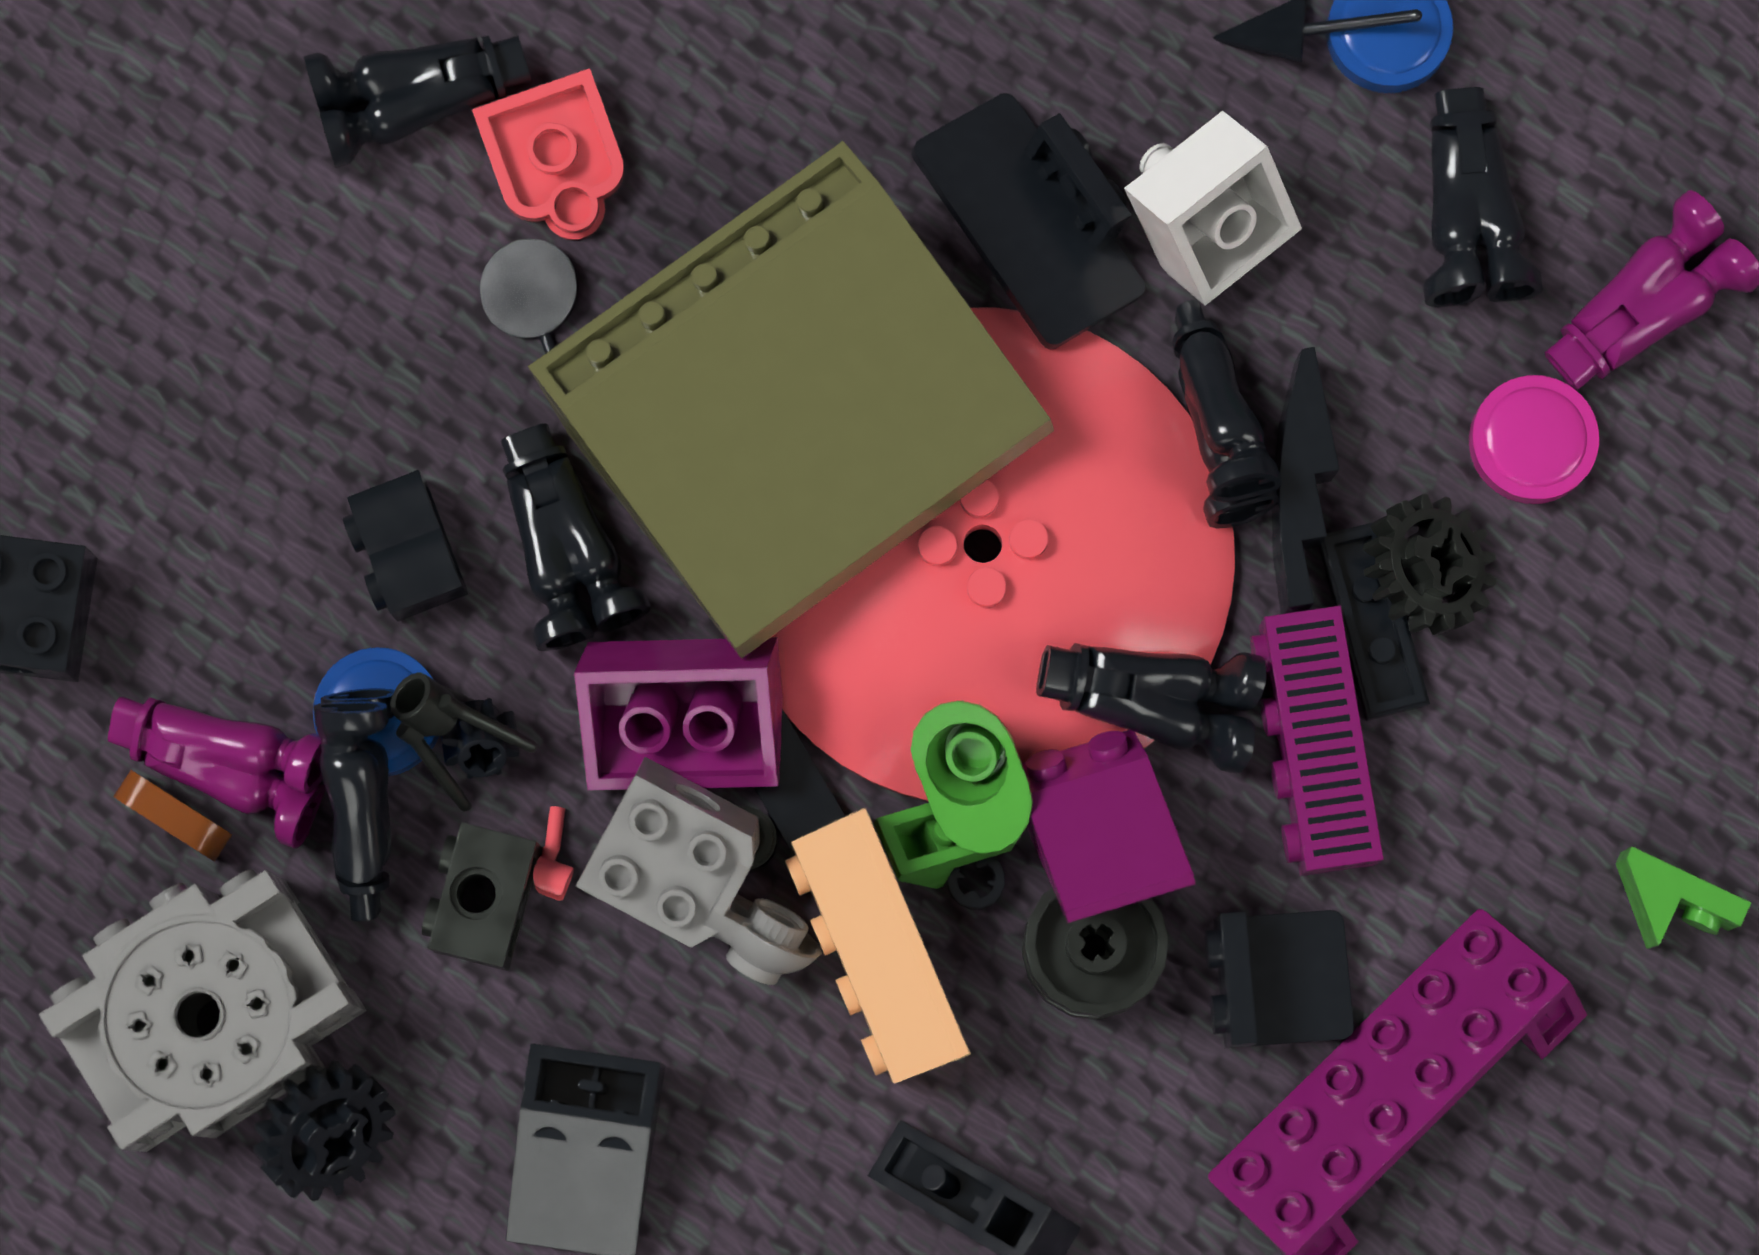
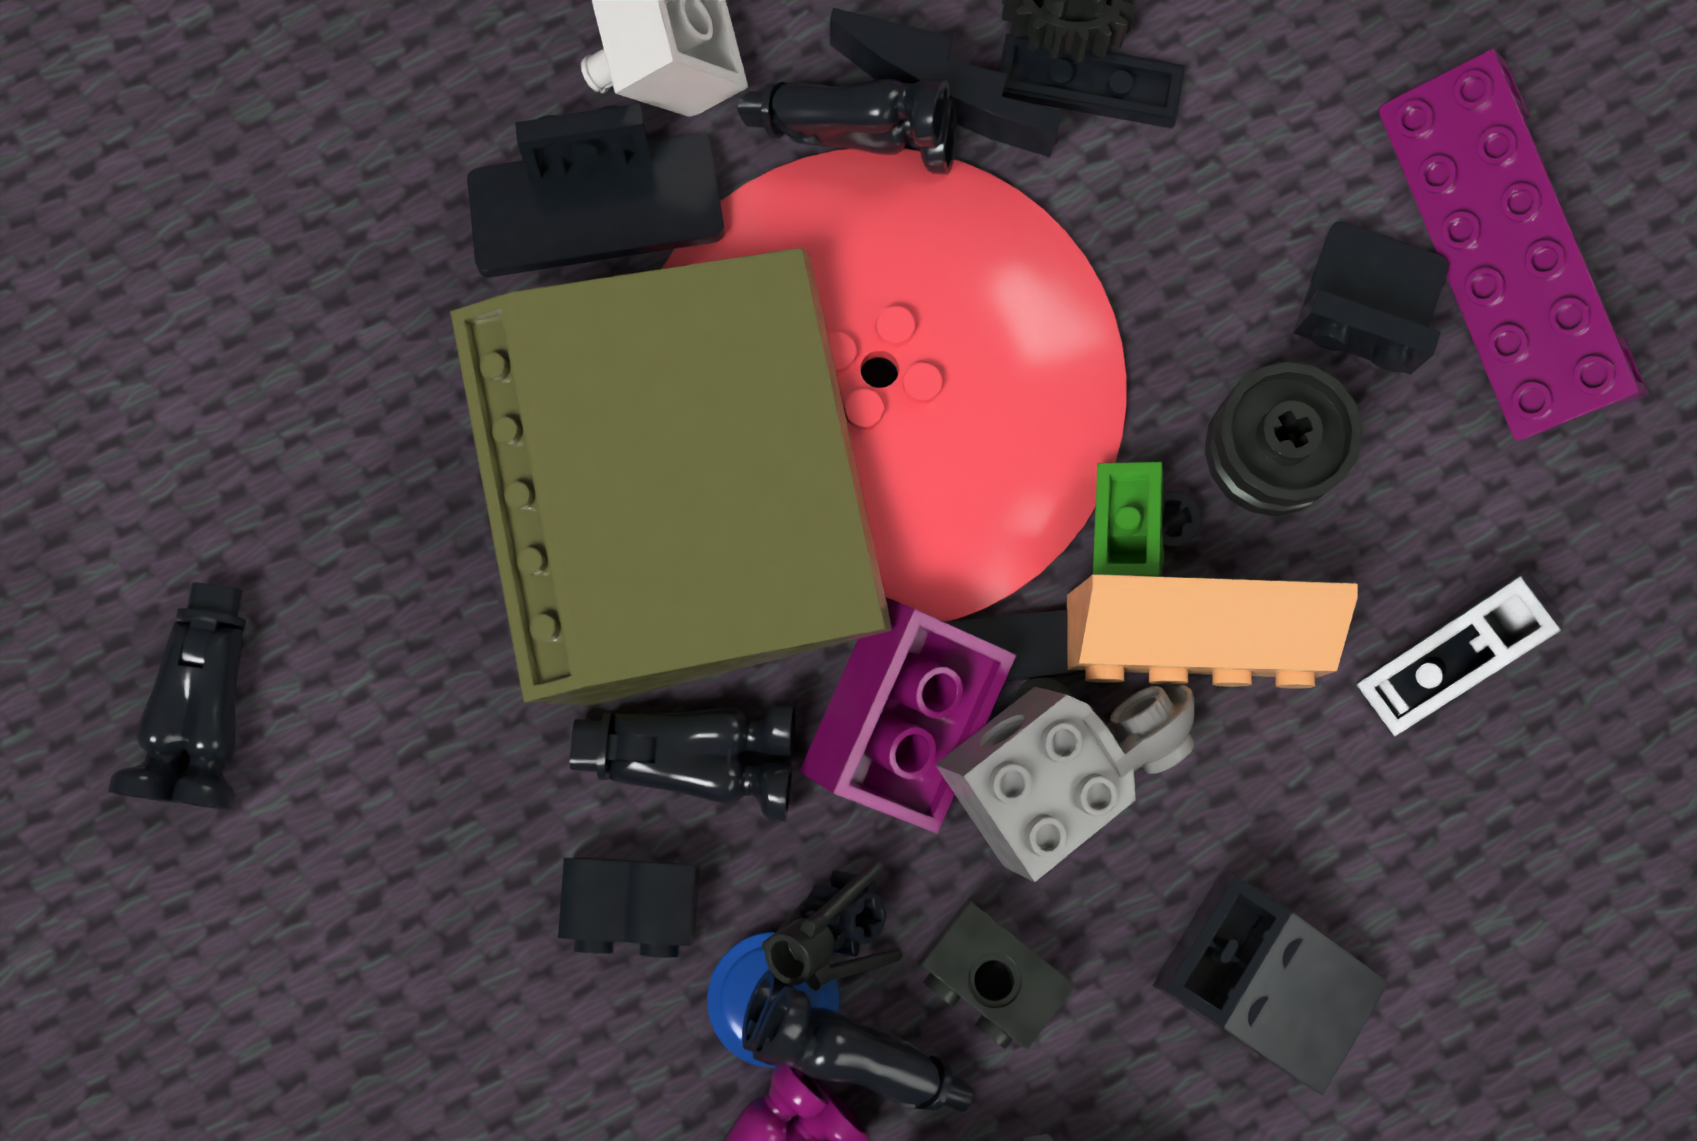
camera: 70 degrees left, 0 degrees up
(529, 290) = (440, 681): piece -> none
(550, 876) = (1000, 903): coral hand -> none
(554, 154) = (321, 600): coral plate -> none
(972, 776) = (1095, 470): bright green piece -> none
(1103, 825) = (1191, 378): magenta slope -> none
(1160, 696) = (1083, 281): black piece -> none
(1318, 741) = (1181, 170): magenta brick -> none

